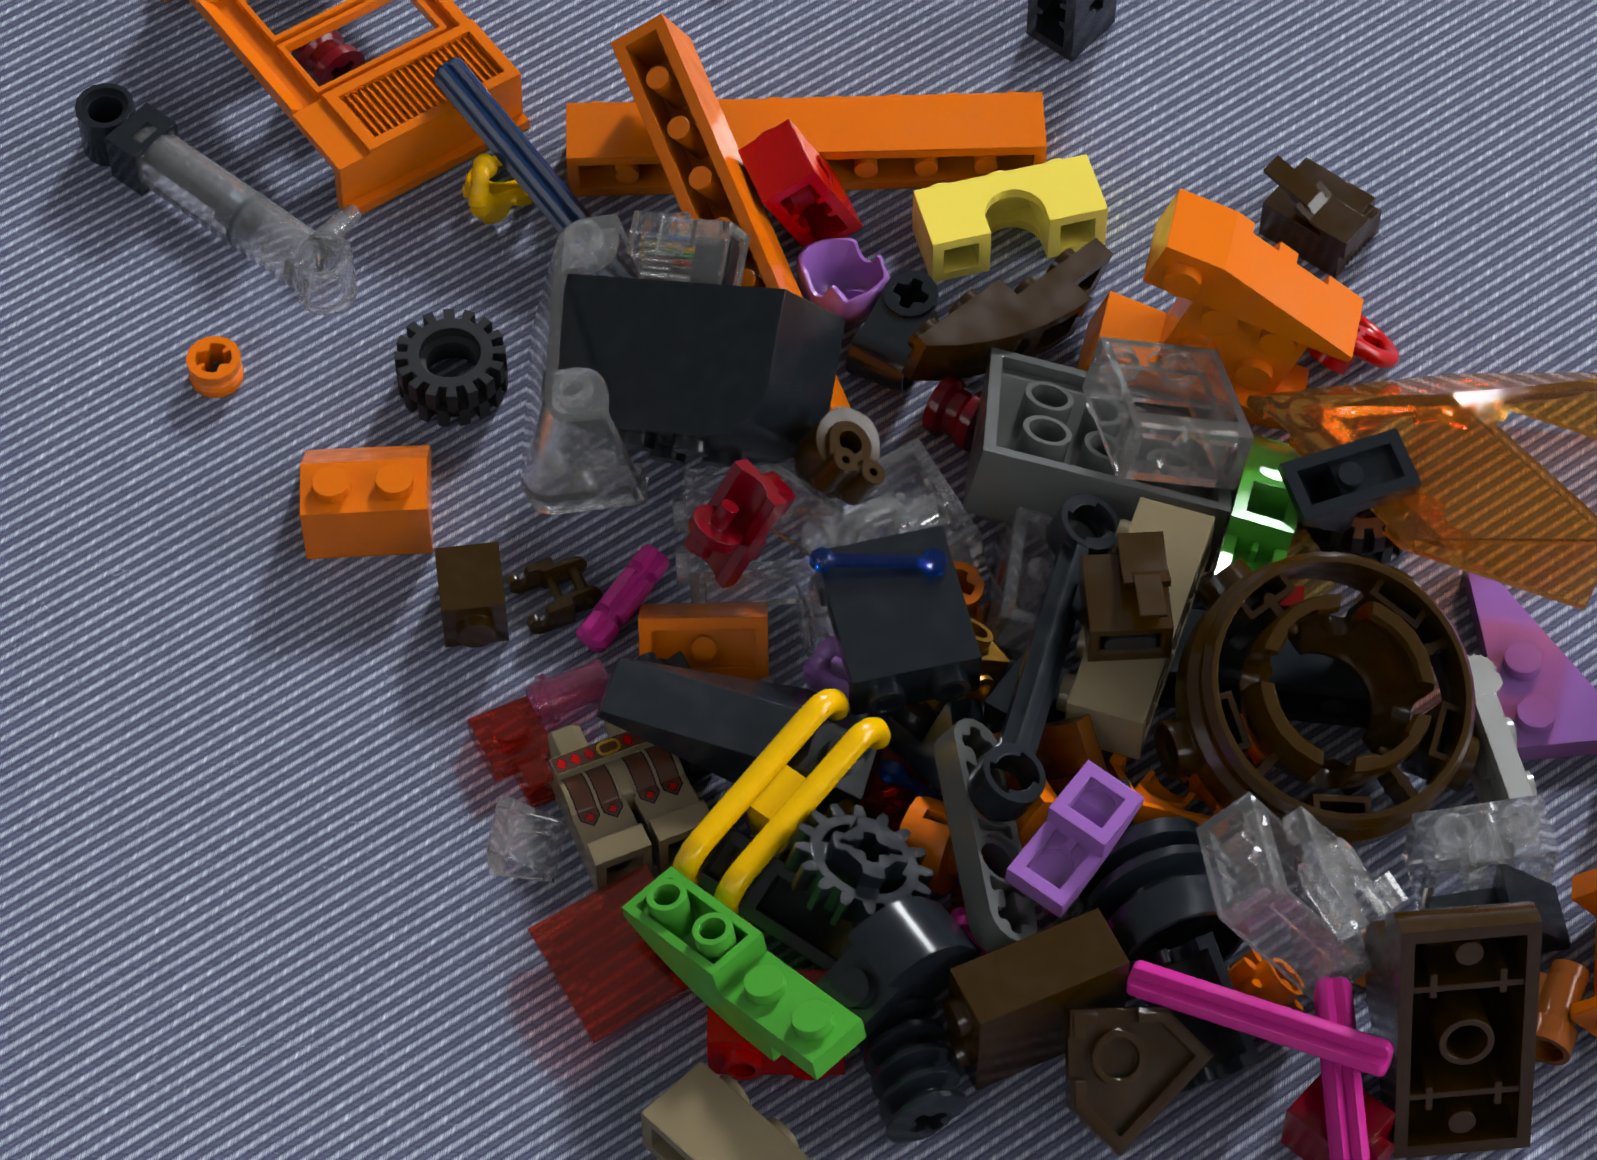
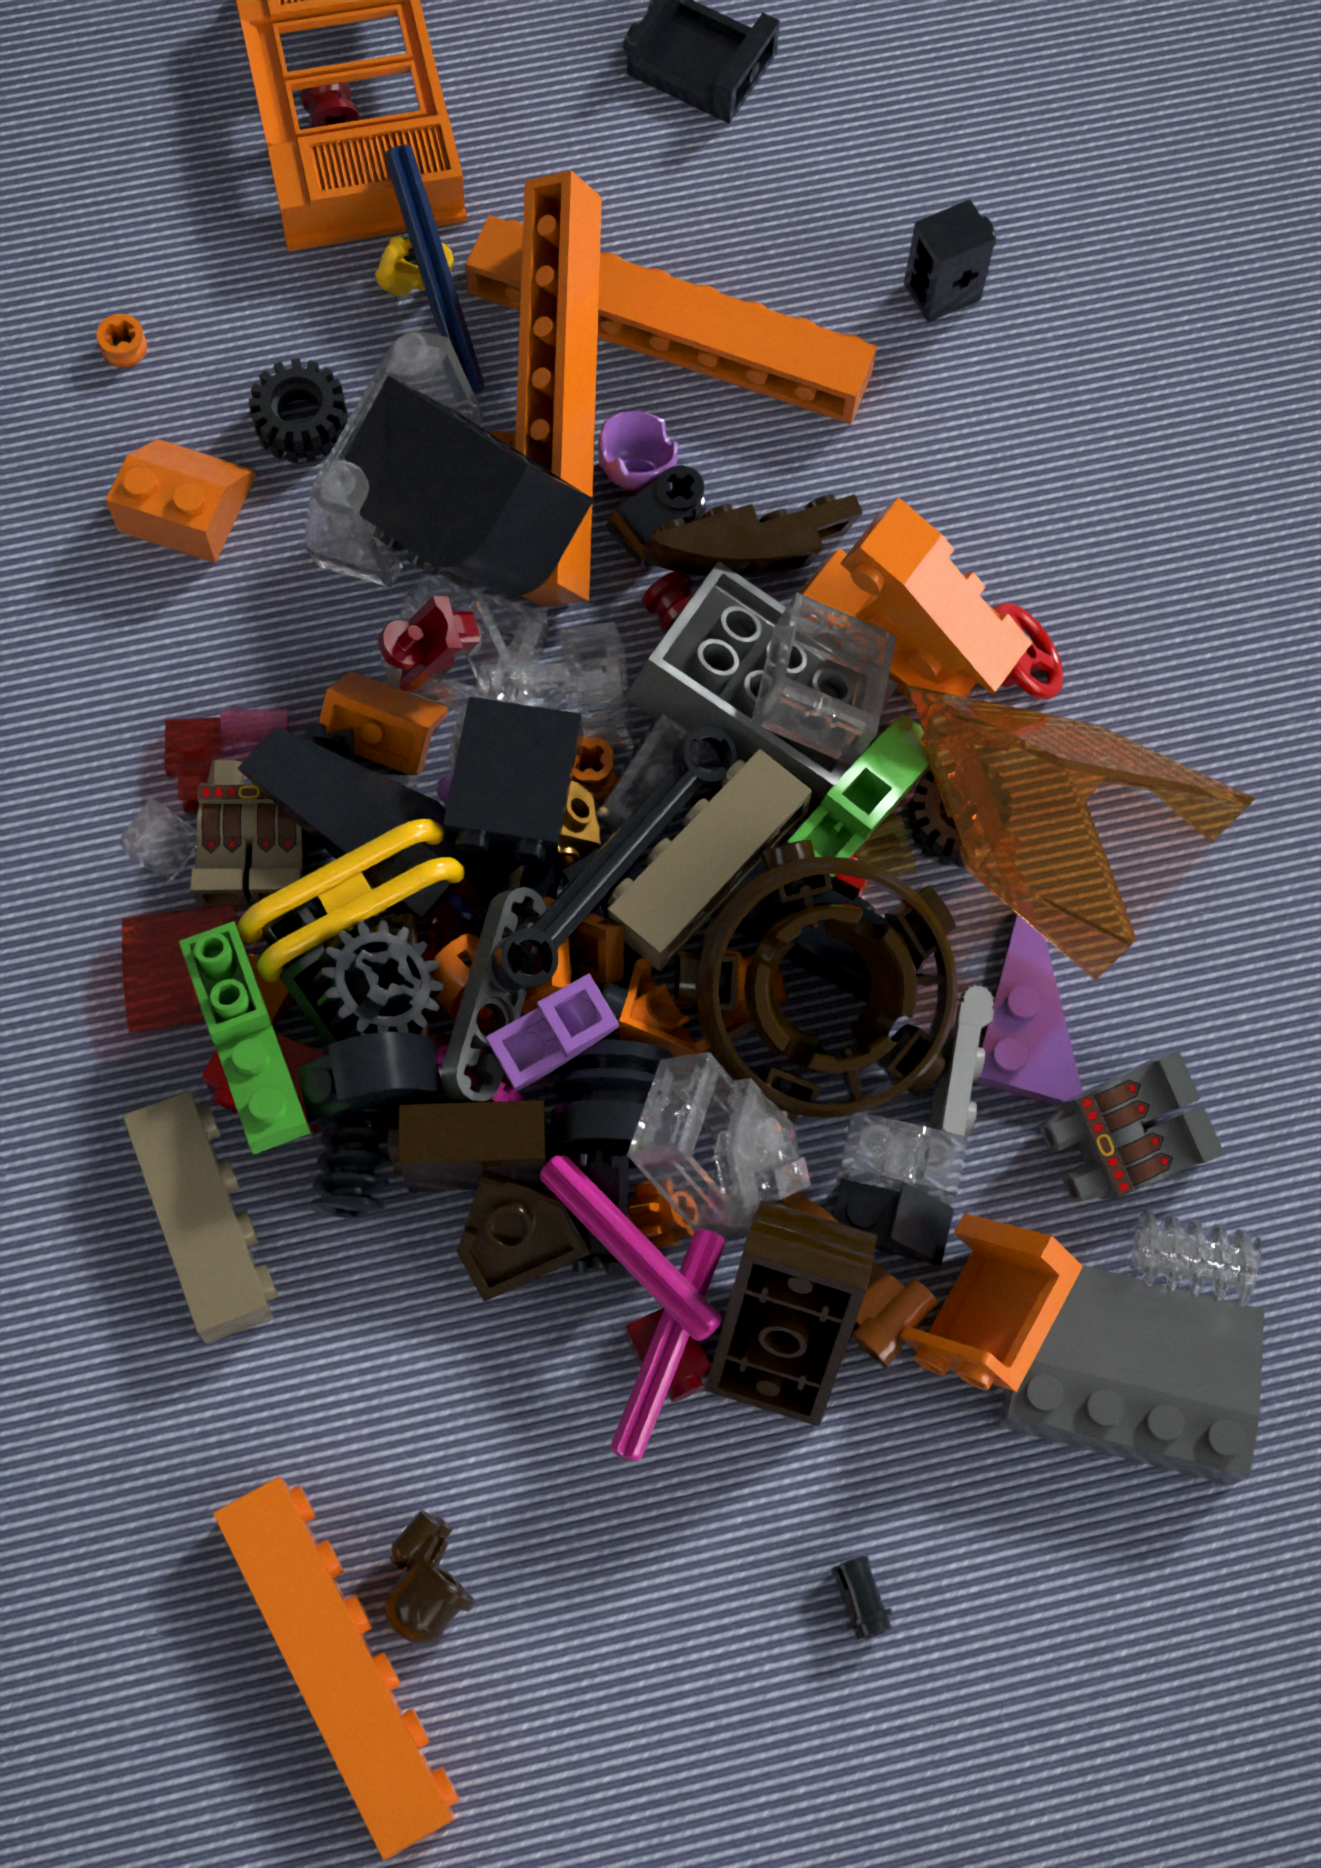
camera: 20 degrees right, 15 degrees up
(149, 155) = (161, 150): clear piece -> none
(471, 595) = (217, 615): dark brown brick -> none
(550, 575) = (289, 652): dark brown piece -> none
(622, 598) = (334, 662): dark pink axle -> none
(687, 248) = (500, 396): clear piece -> none
(799, 186) = (635, 359): red brick -> none
(841, 456) = (537, 618): dark brown piece -> none
(931, 562) = (555, 743): clear blue hinge -> none
(1050, 199) = (841, 440): light yellow arch -> none
(1127, 600) = (694, 841): dark brown piece -> none
(1318, 214) = (1056, 537): dark brown piece -> none
(1348, 479) = (941, 798): black slope -> none

